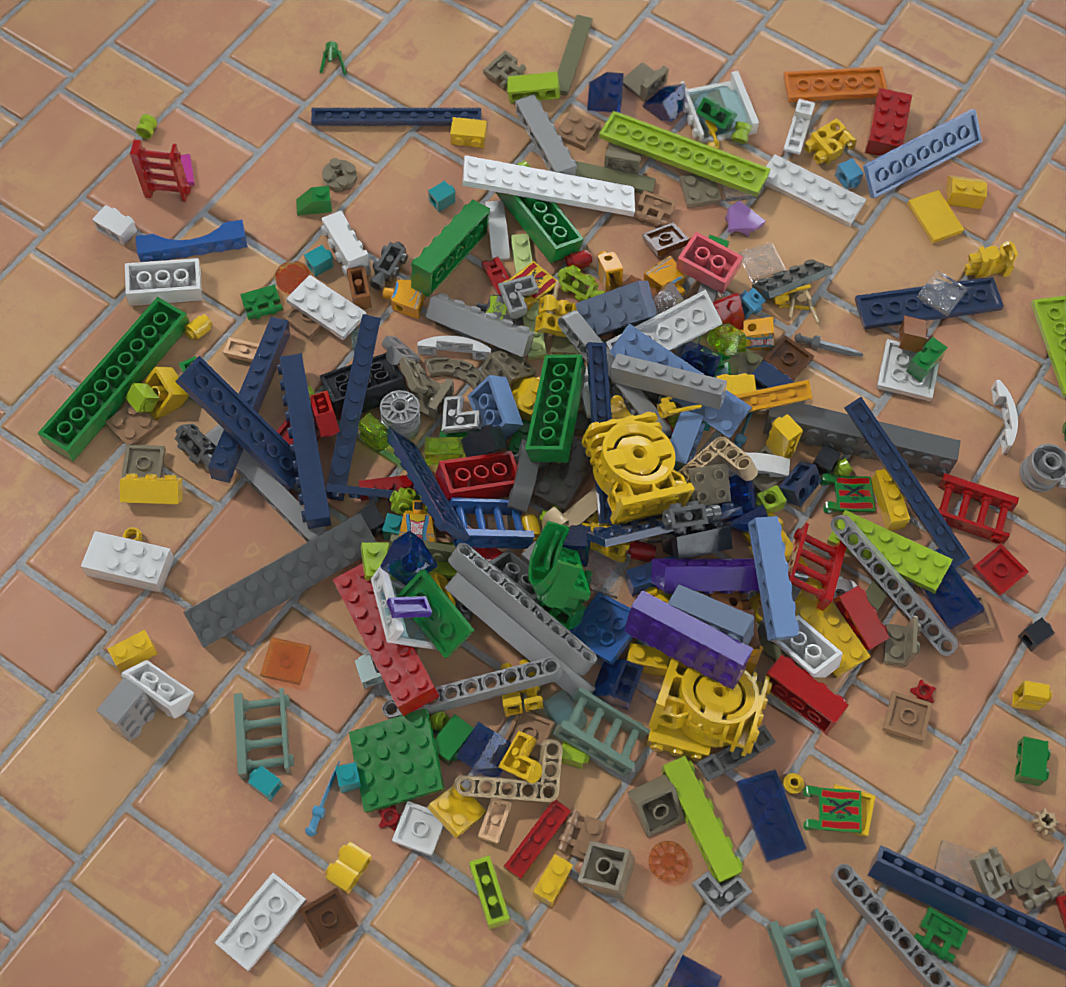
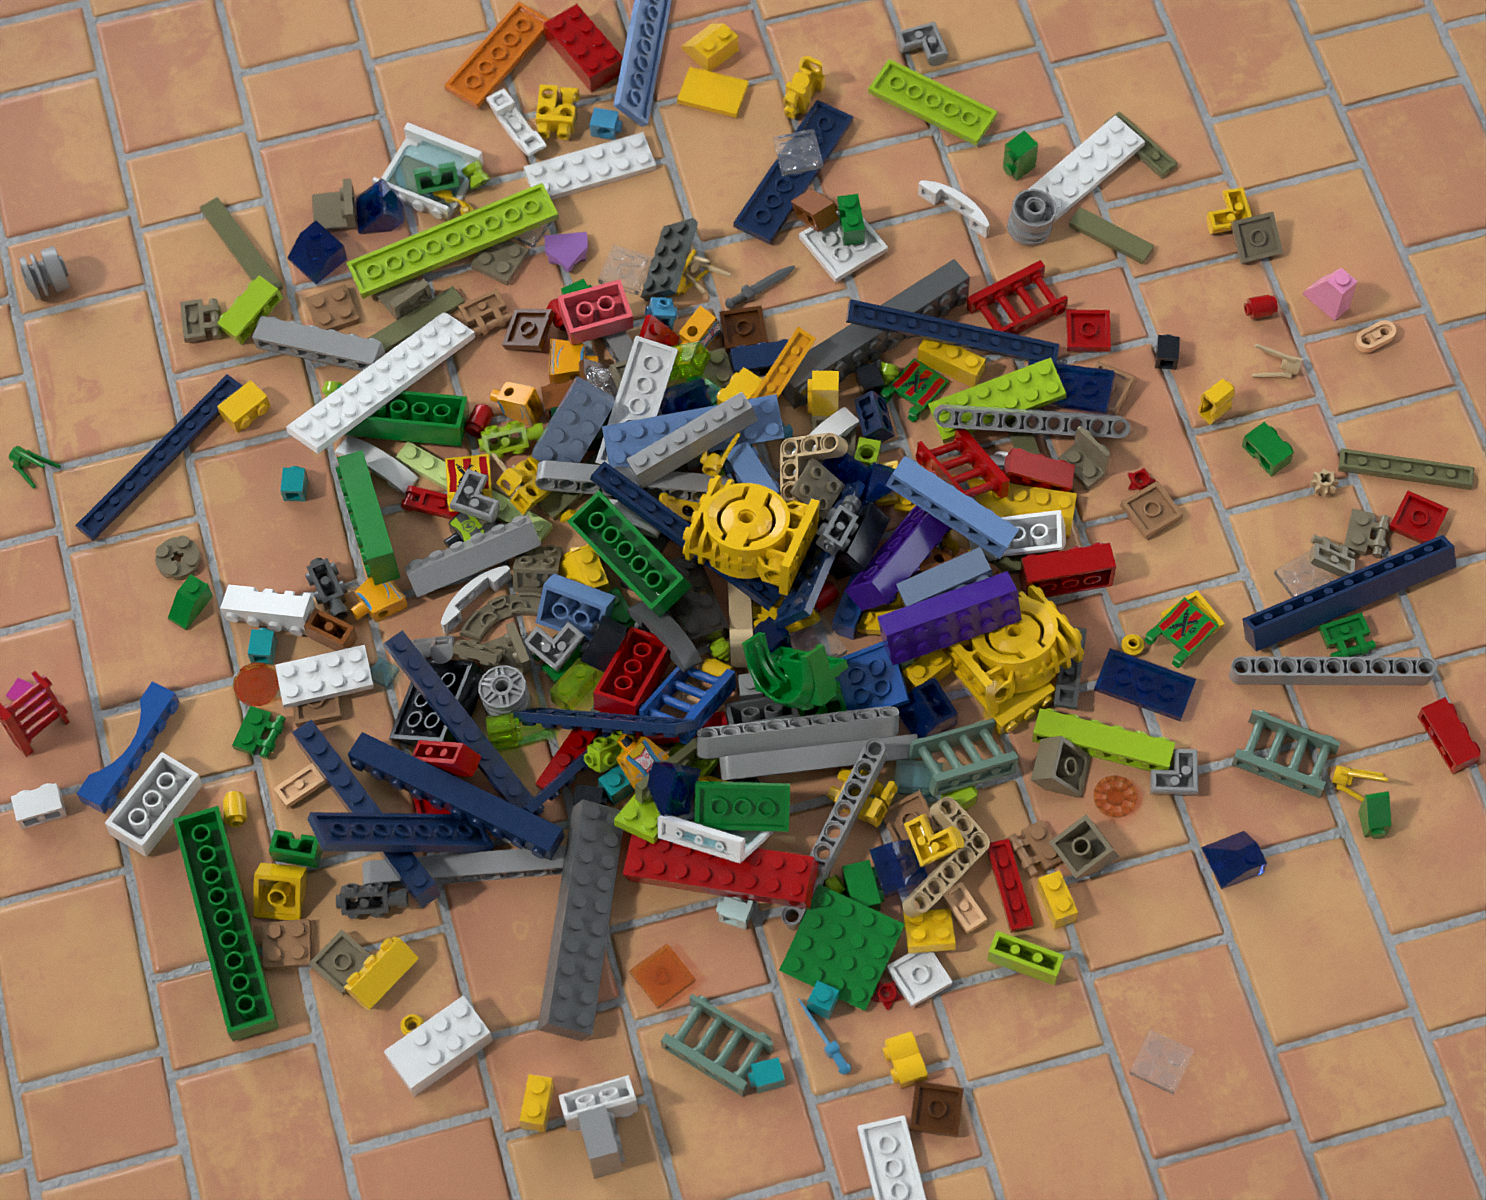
camera: 45 degrees left, 0 degrees up
(142, 397) = (272, 912): lime brick -> none
(408, 607) = (724, 819): dark purple tile -> none

